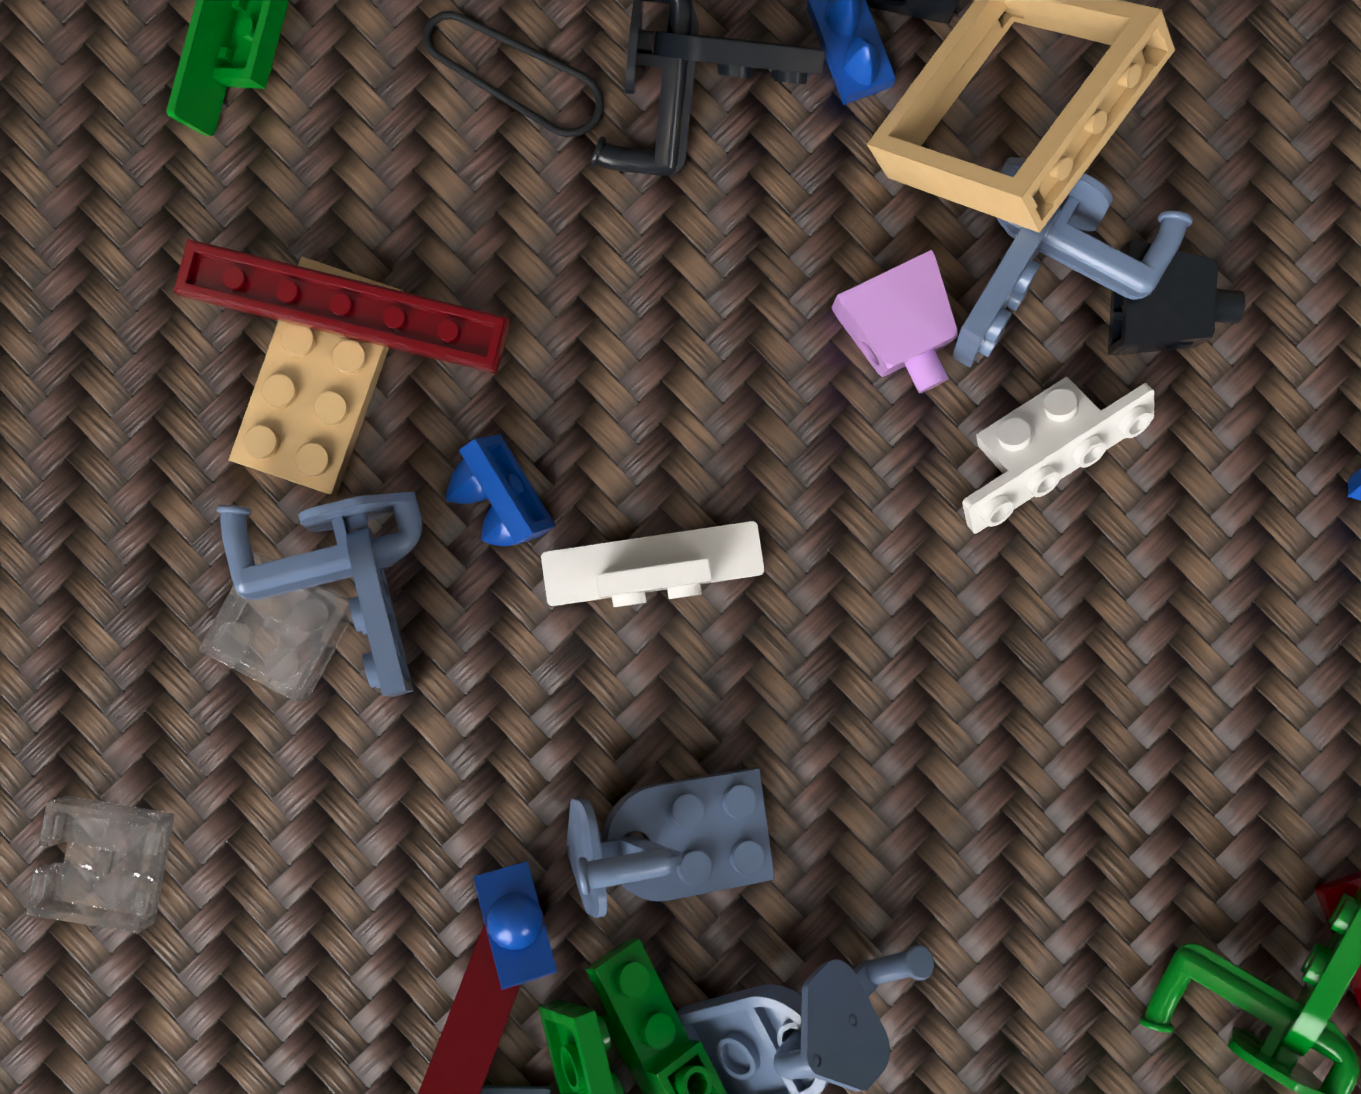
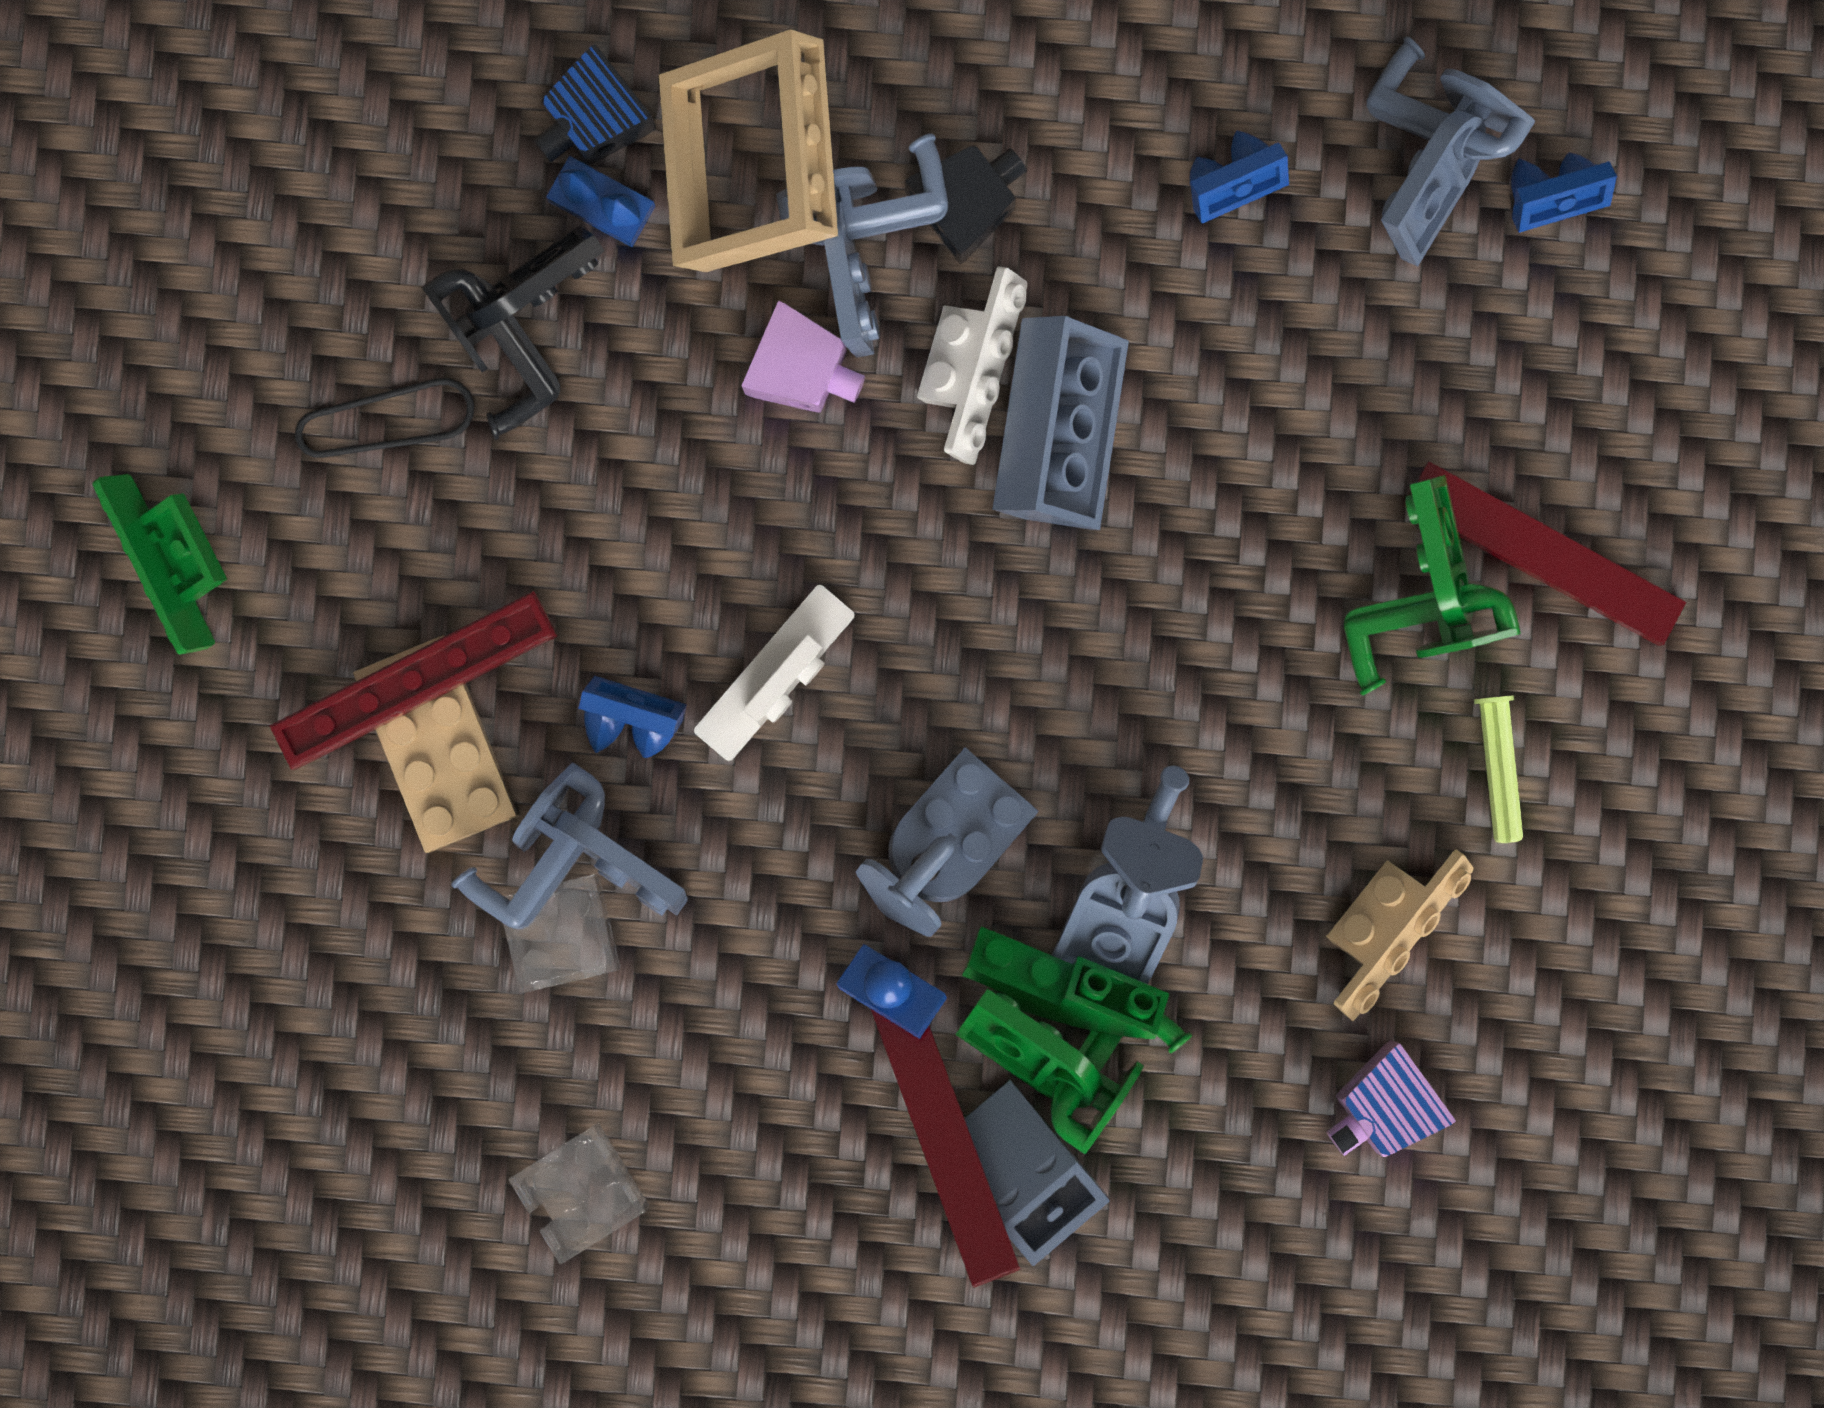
camera: 40 degrees left, 0 degrees up
(1082, 561) = (1060, 422): none -> sand blue slope

